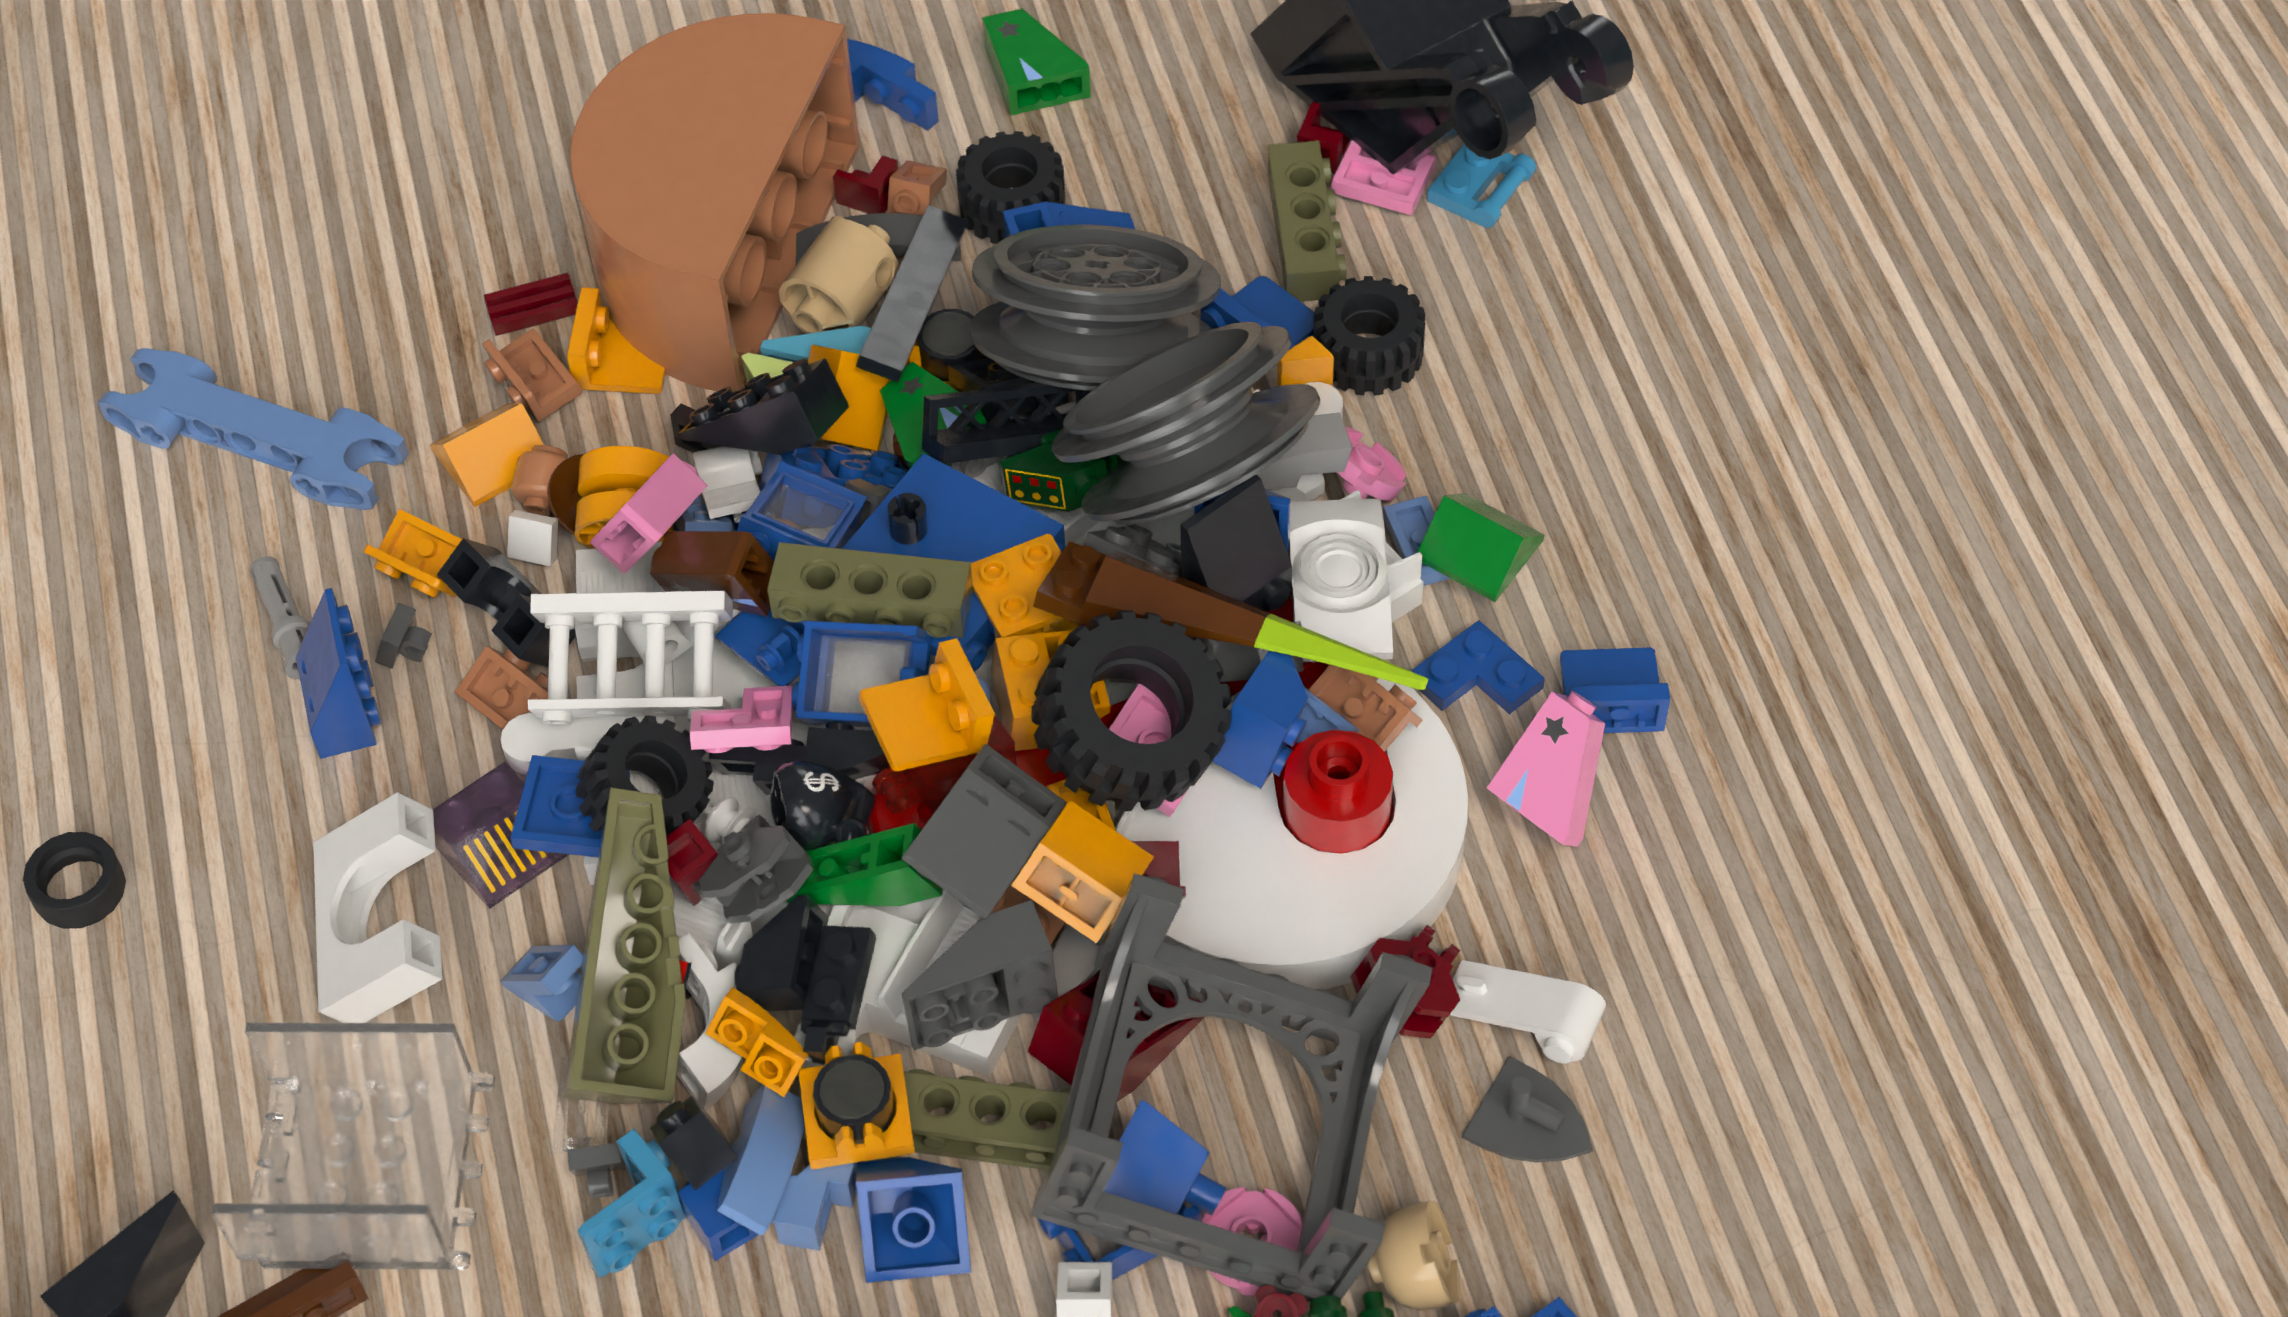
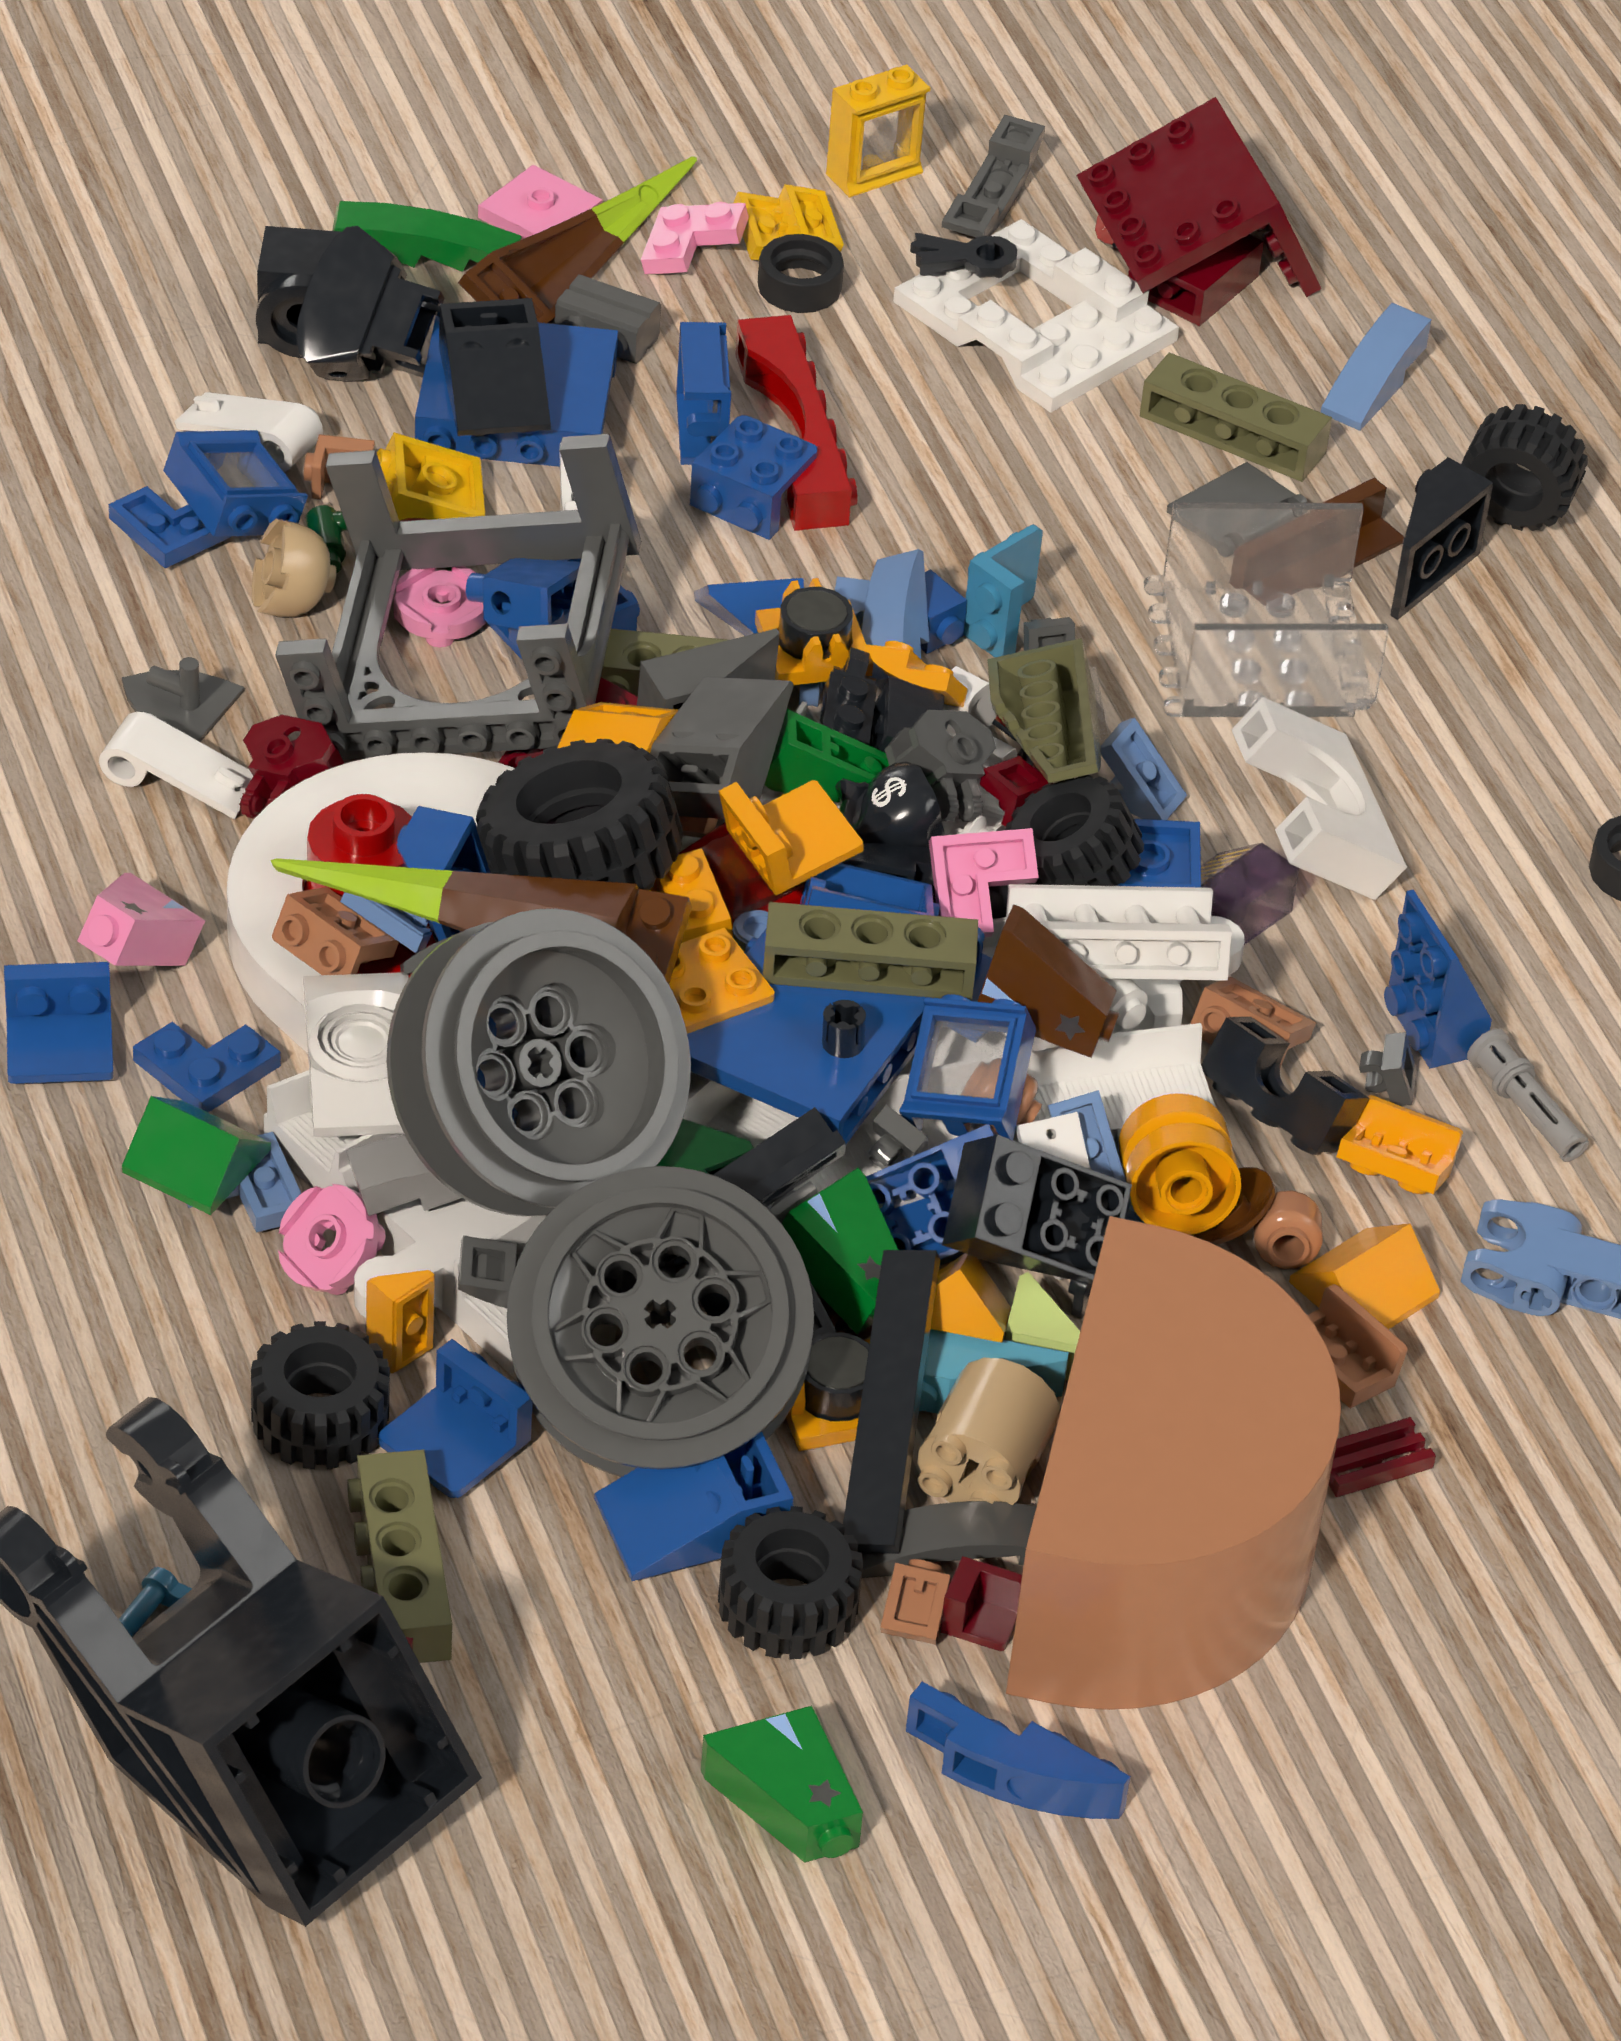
camera: 170 degrees right, 10 degrees down
(532, 538) = (1284, 1169): white tile -> none
(649, 513) = (1134, 1062): bright pink slope -> none
(693, 1141) = (961, 621): black slope -> none

